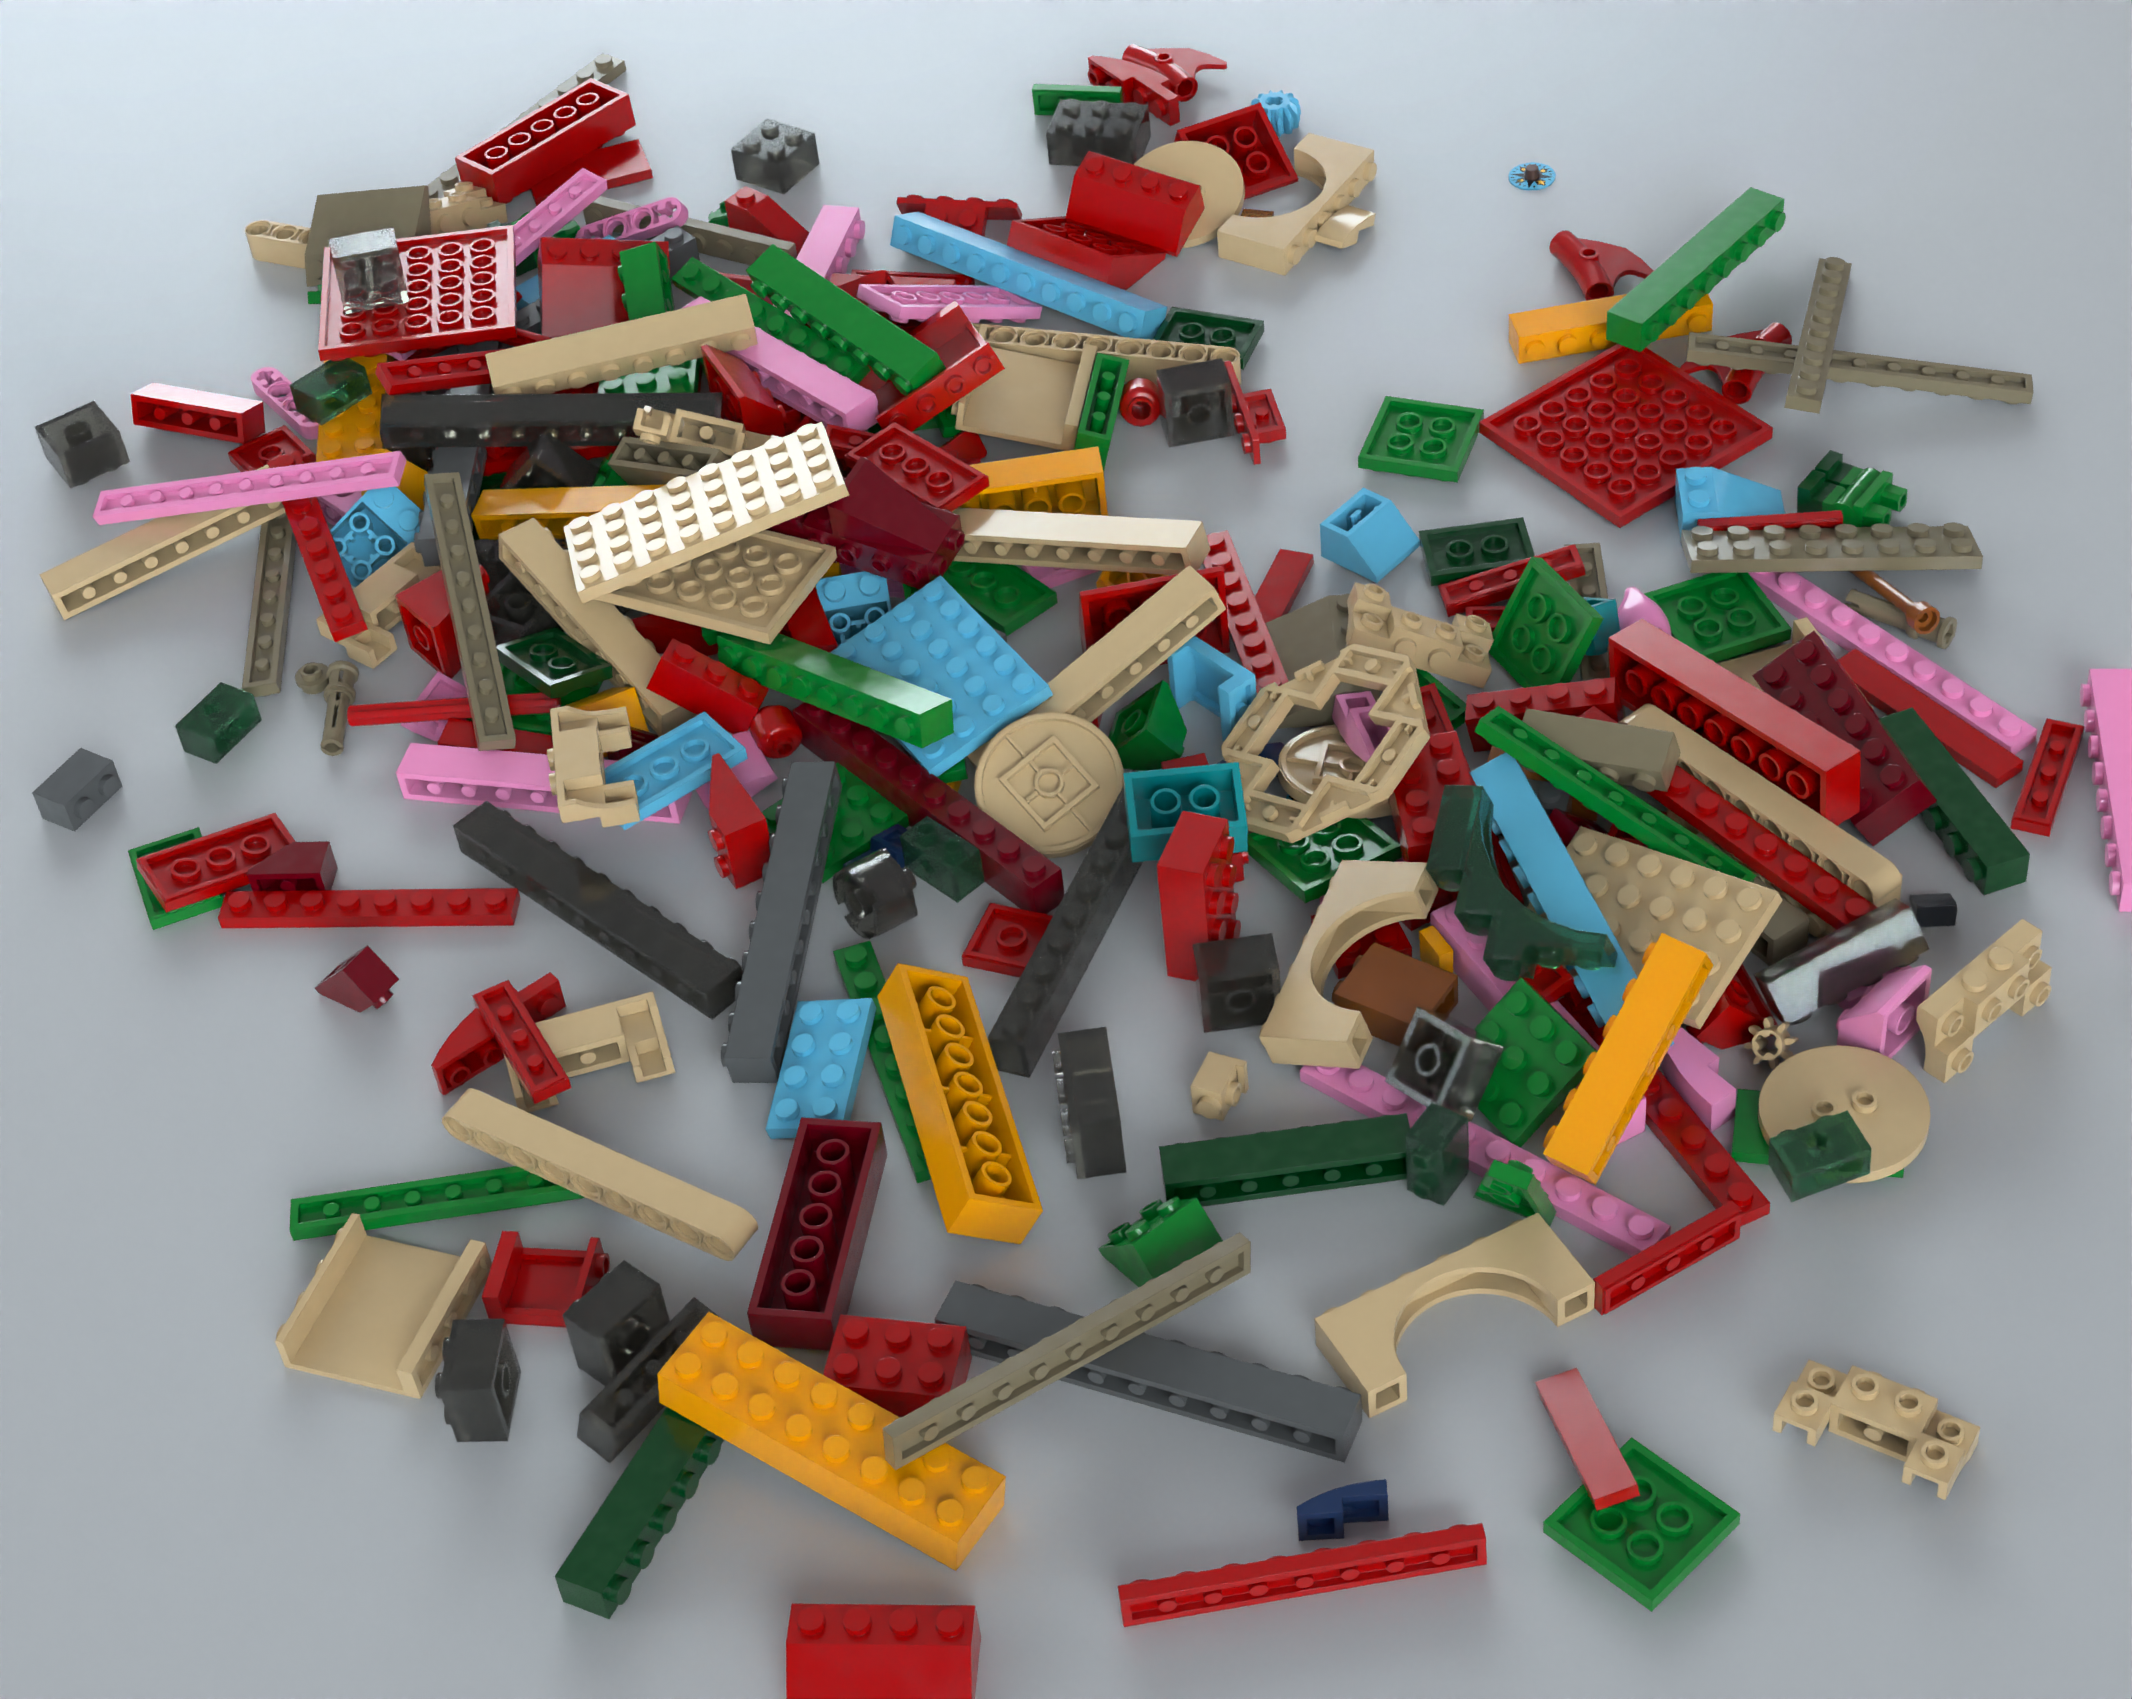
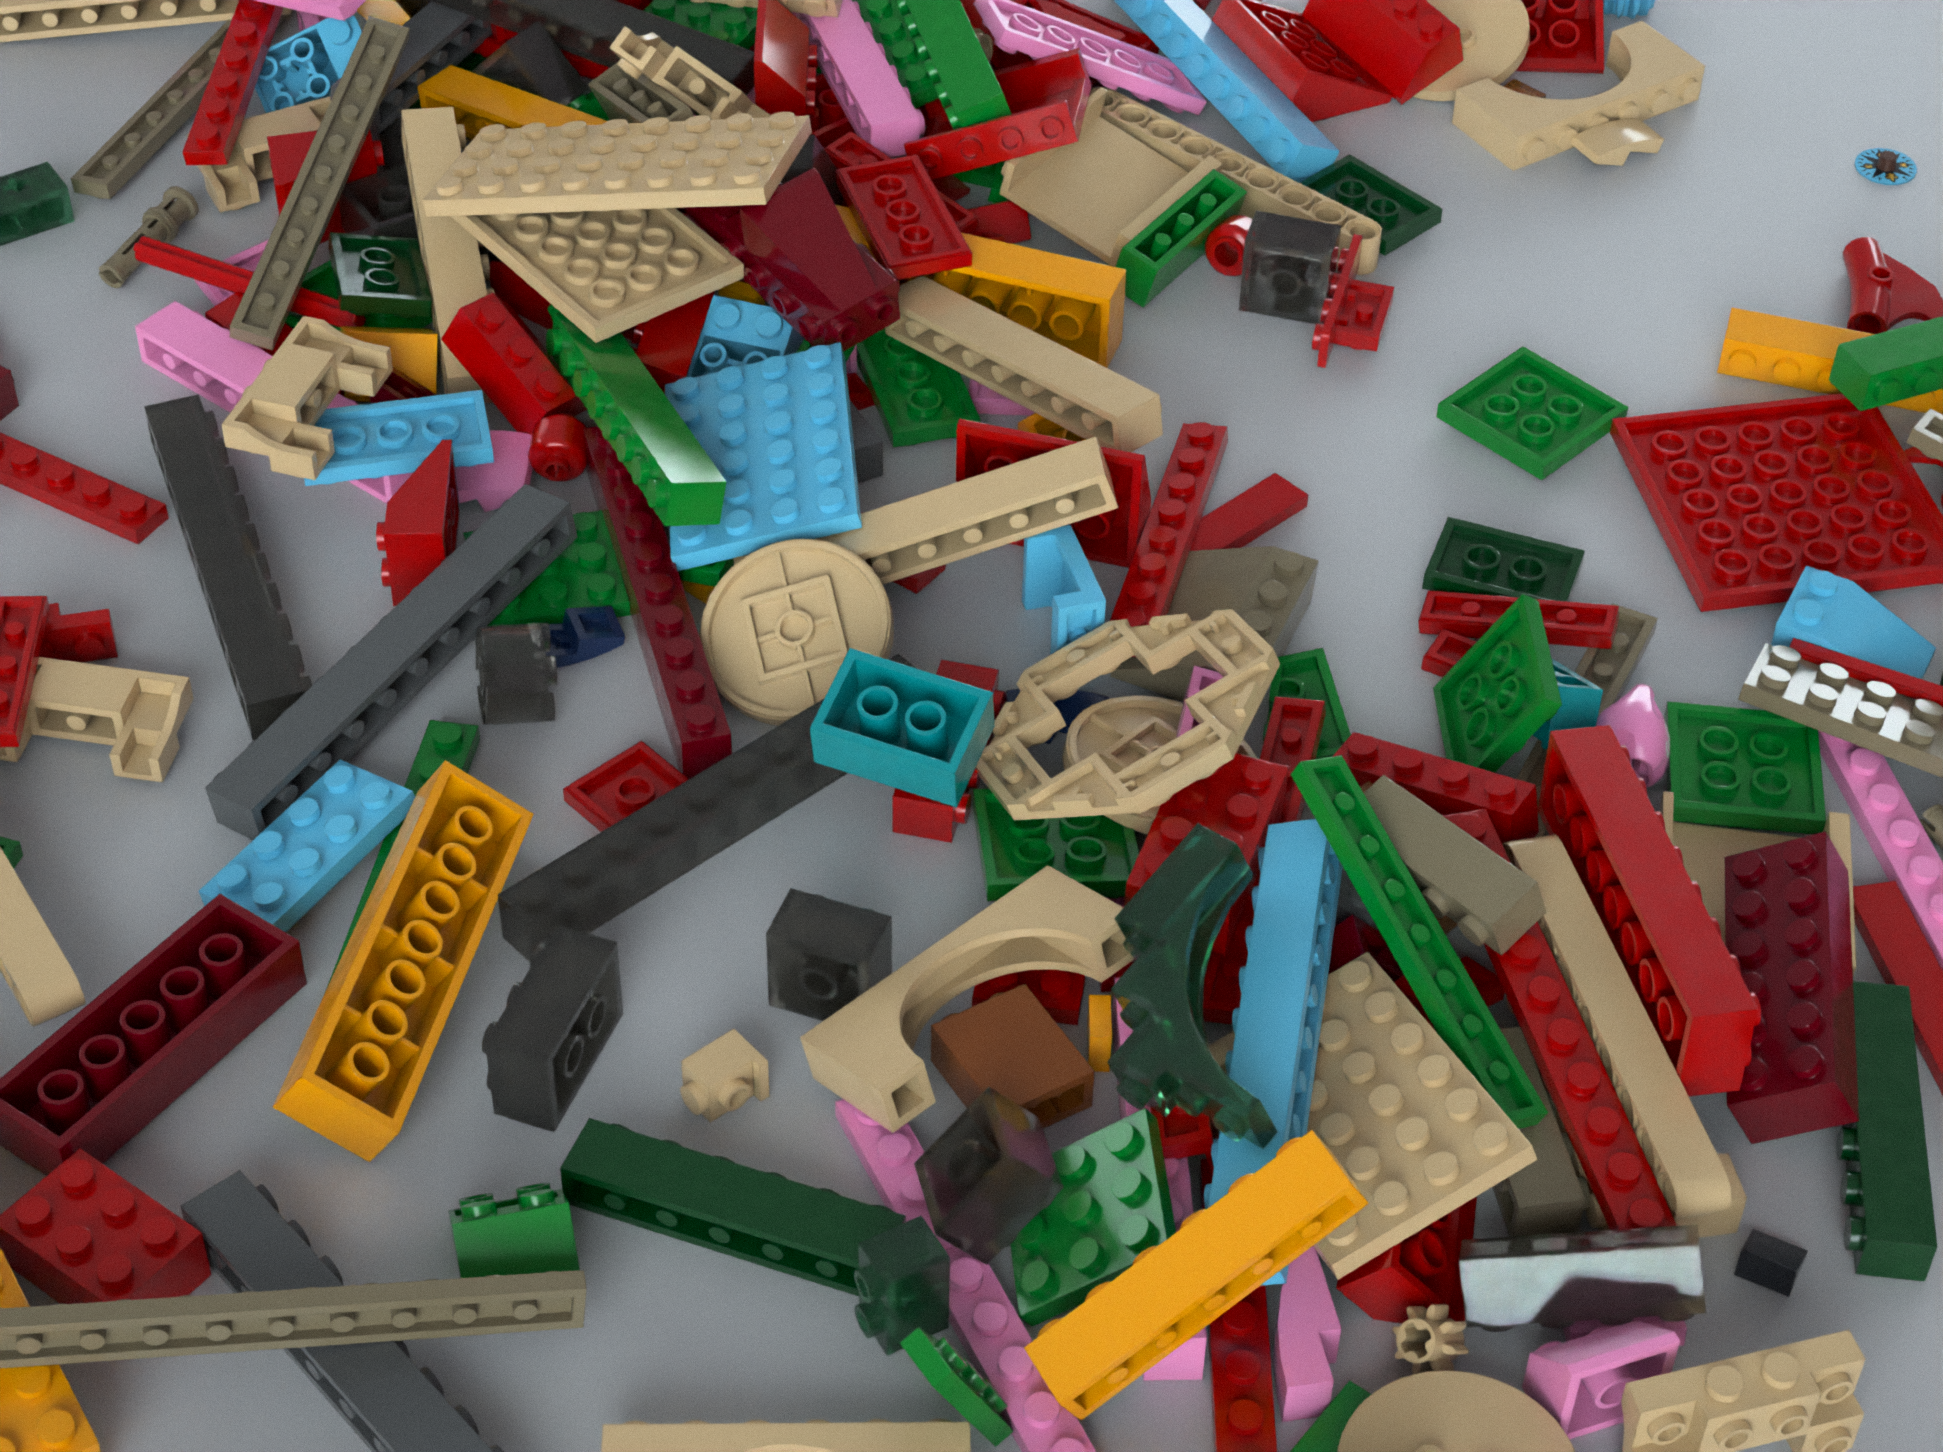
camera: 20 degrees right, 0 degrees up
(312, 678) = (149, 194): dark tan plate -> none
(942, 859) = (623, 667): clear green brick -> none
(1149, 730) = (960, 620): green slope -> none
(1196, 889) = (840, 819): red brick -> none
(1367, 536) = (1381, 497): medium azure slope -> none
(1432, 645) = (1345, 644): tan bracket -> none

